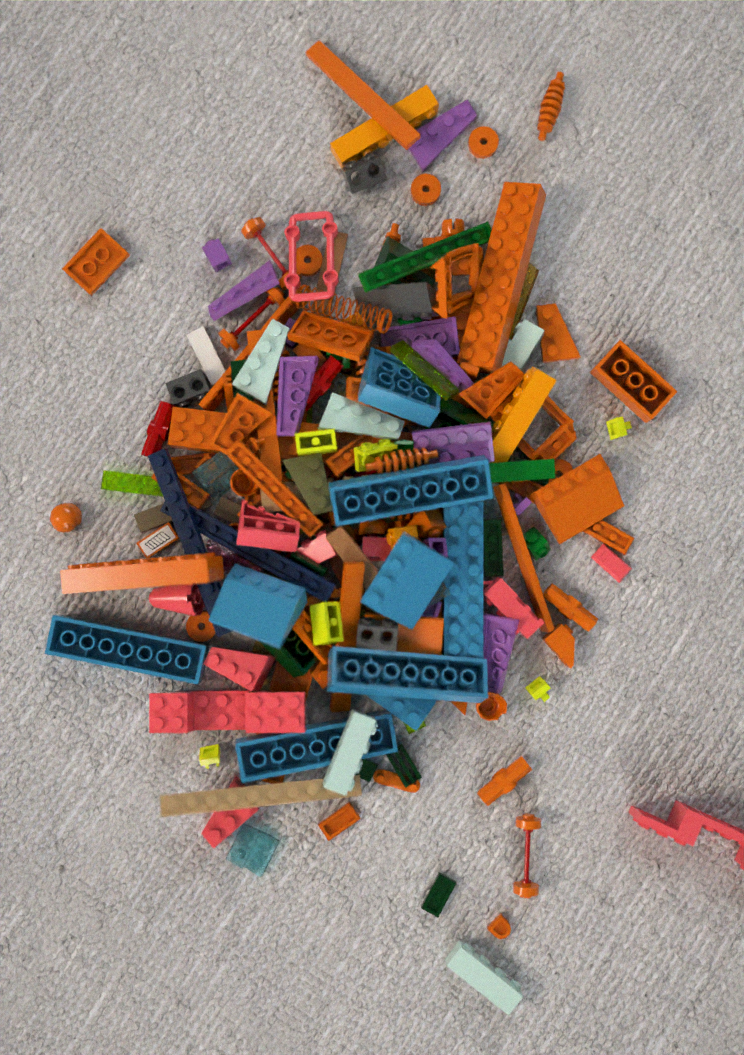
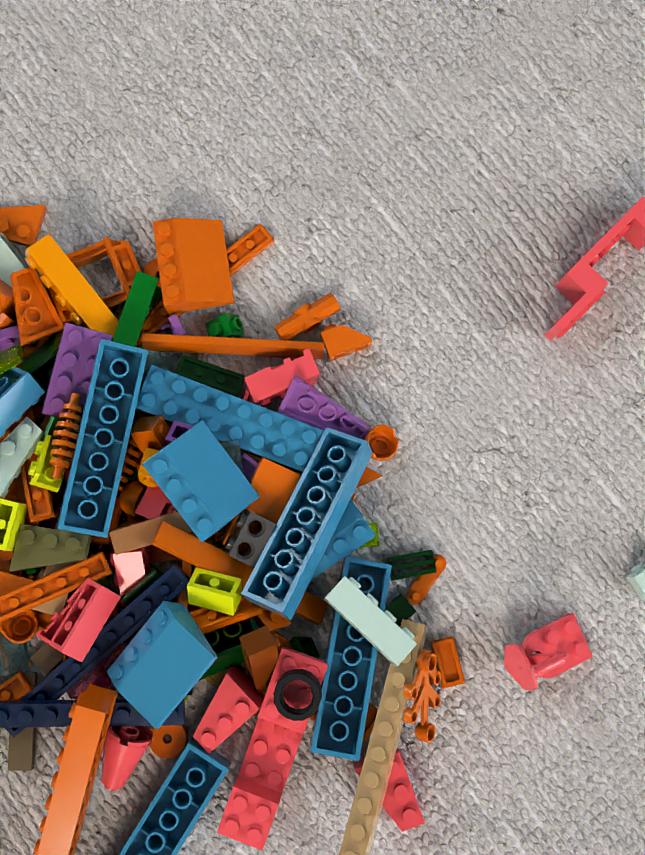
camera: 70 degrees left, 5 degrees down
(158, 540) = (48, 747): tile -> none
(209, 755) = (318, 785): neon yellow tile -> none
(252, 849) = (444, 775): clear light blue slope -> none
(258, 719) = (292, 713): none -> black tyre
(290, 677) = (260, 655): none -> dark orange slope
(307, 813) = (425, 697): none -> orange plant
(311, 705) = (304, 645): none -> dark green tile
(383, 904) = (558, 649): none -> coral plate
(438, 894) = (568, 580): dark green tile -> none
(500, 927) = (627, 526): orange tile -> none
(504, 781) = (468, 459): orange piece -> none
(525, 887) = (593, 481): orange axle -> none
(538, 689) = (382, 384): neon yellow tile -> none
(611, 563) = (277, 257): coral tile -> none
(617, 427) = (135, 194): neon yellow tile -> none
(633, 381) = (91, 160): orange brick -> none

